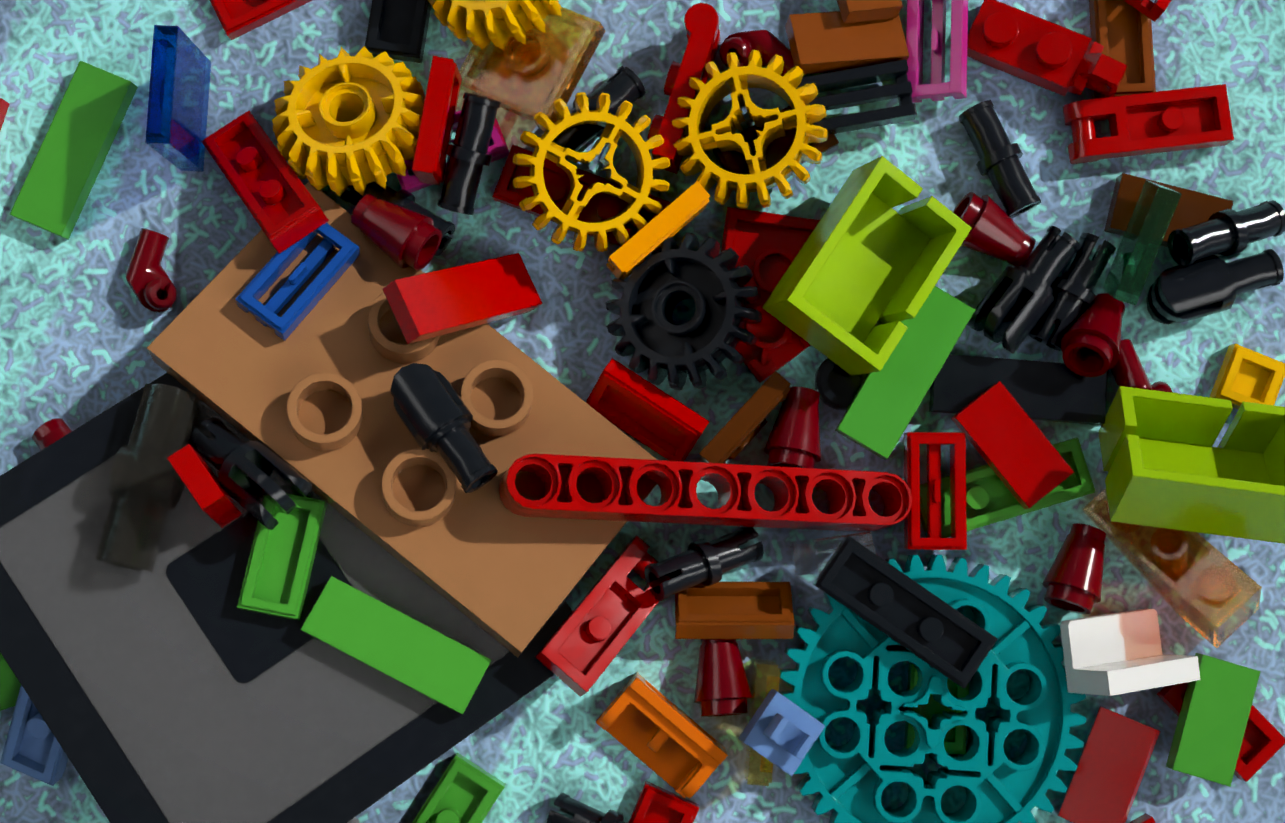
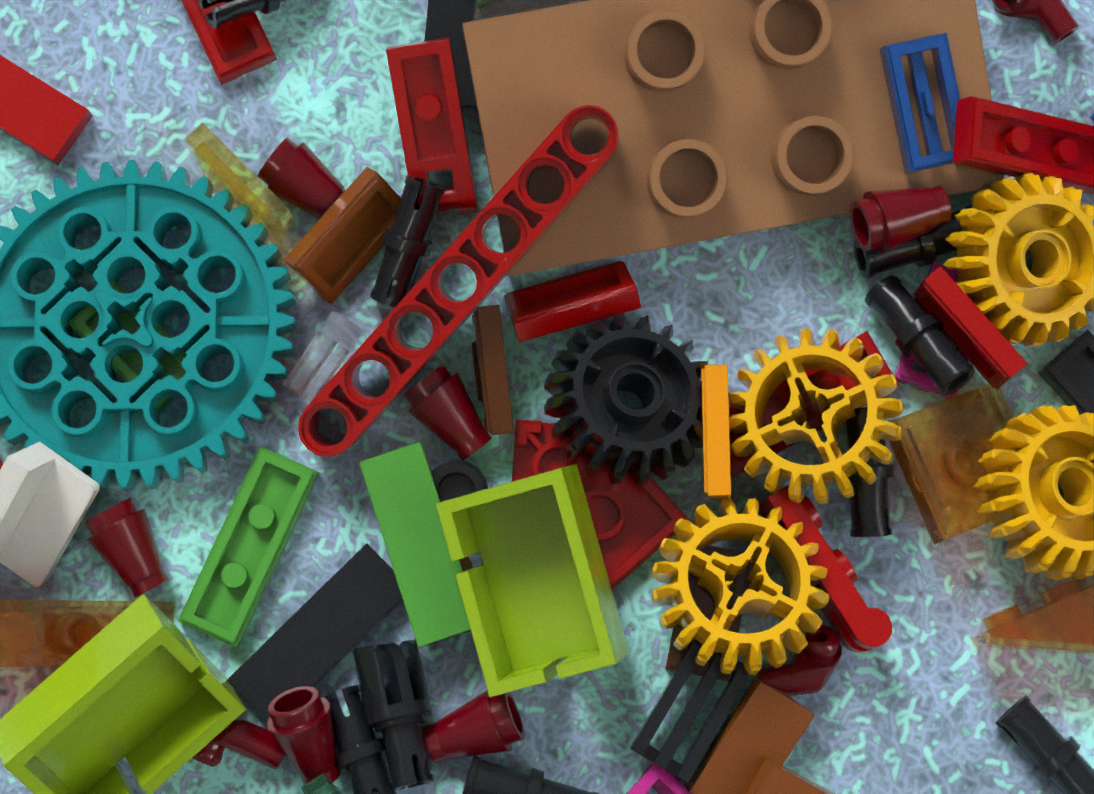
camera: 130 degrees right, 5 degrees down
(441, 423) = (701, 108): black arm -> none
(461, 297) = (795, 221): red tile -> none
(662, 736) = (300, 100): orange hinge -> none
(781, 732) = (218, 179): medium blue tile -> none
(905, 611) = (223, 362): black tile -> none
(957, 490) = (338, 517): red tile -> none
(1012, 445) = (278, 579): red tile -> none

